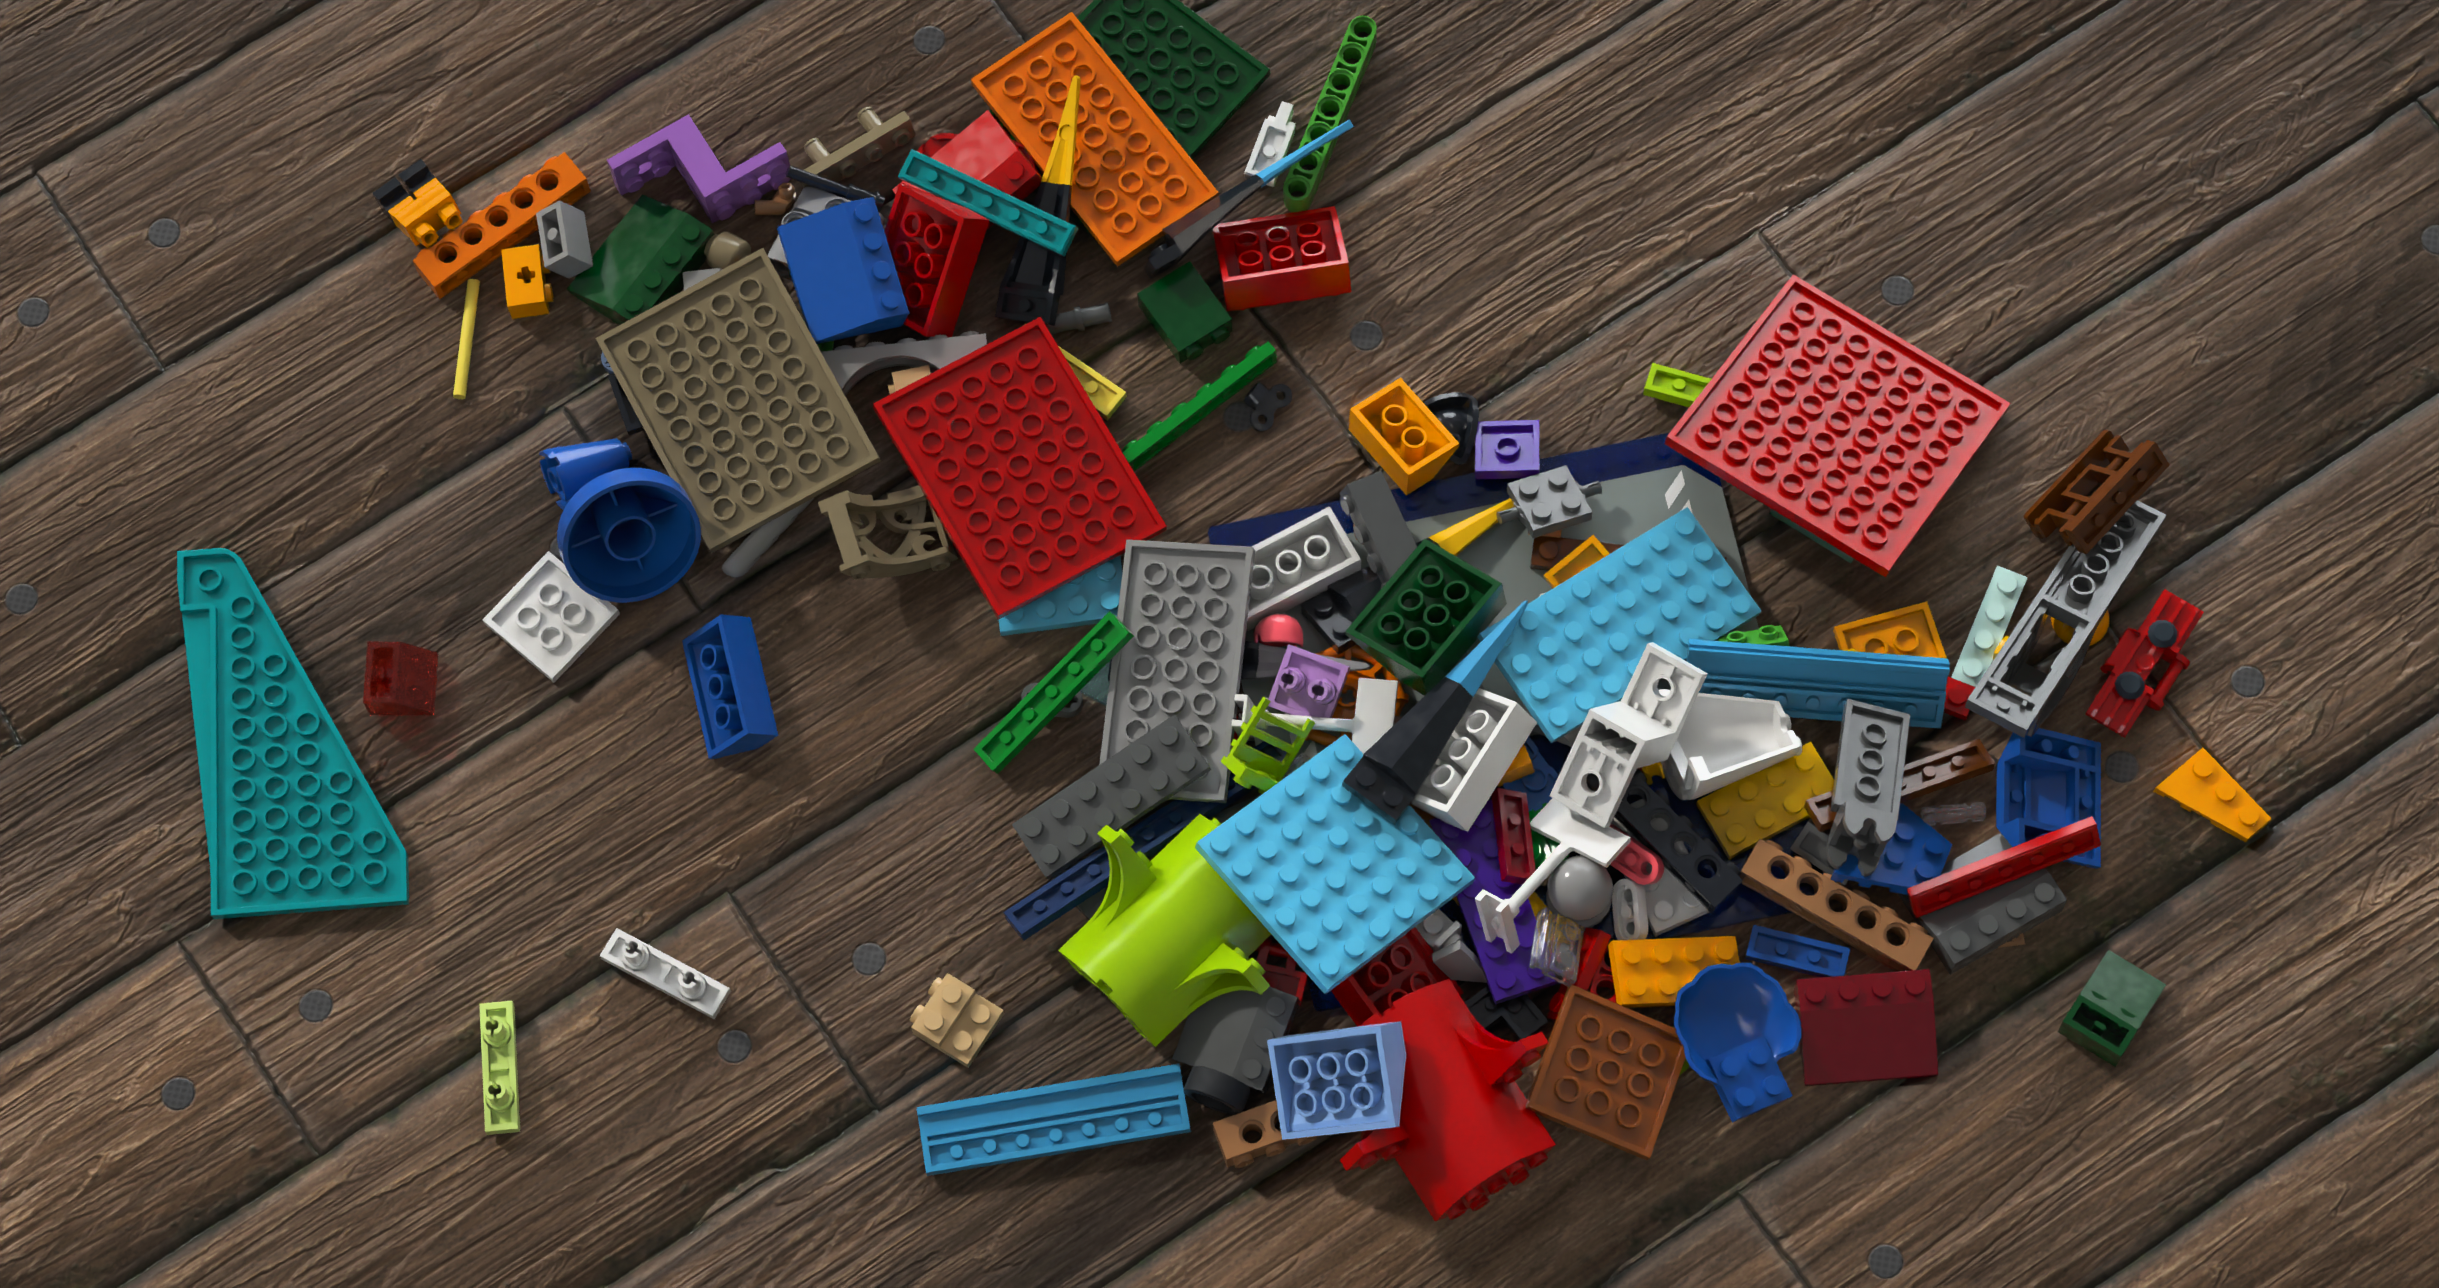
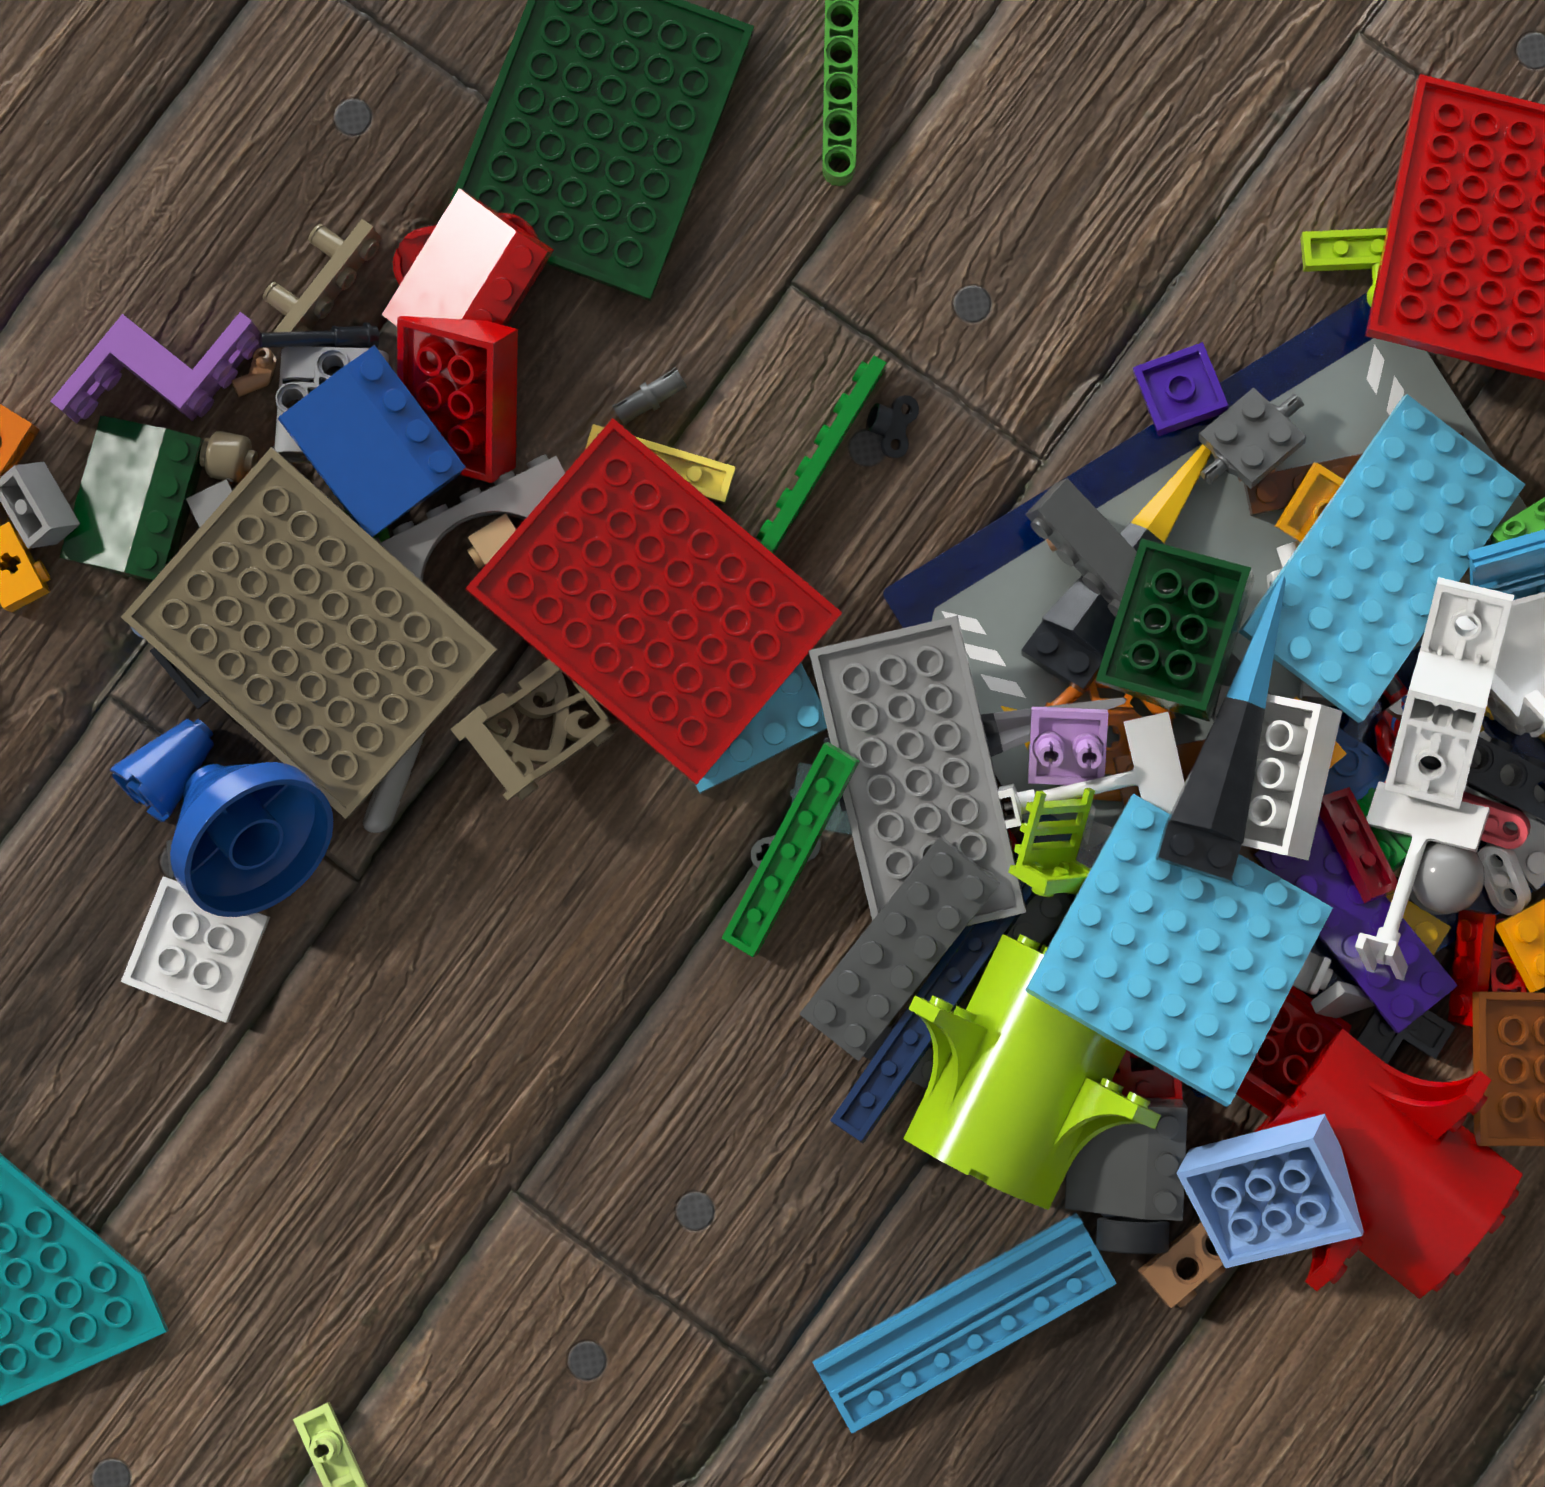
camera: 25 degrees left, 15 degrees up
(400, 679) = (57, 1083): clear red slope -> none
(665, 973) = (482, 1311): white plate -> none
(729, 686) = (426, 961): blue slope -> none
(955, 1019) = (817, 1249): tan plate -> none
(988, 202) = (505, 305): teal tile -> none
(1036, 273) = (583, 352): black plate -> none
(1126, 163) = (590, 178): orange plate -> none
(1185, 313) = (766, 350): dark green brick -> none
(1193, 227) = (742, 252): black plate -> none
(1272, 141) = (789, 117): white hinge -> none
(1279, 631) = (1010, 691): coral hair -> none
(1281, 258) = (849, 247): red slope -> none
(1299, 565) = (1006, 604): white brick -> none
(1402, 435) = (1062, 414): light orange slope -> none
(1460, 417) = (1103, 382): black hat -> none
(1557, 947) = (1443, 950): clear plate -> none

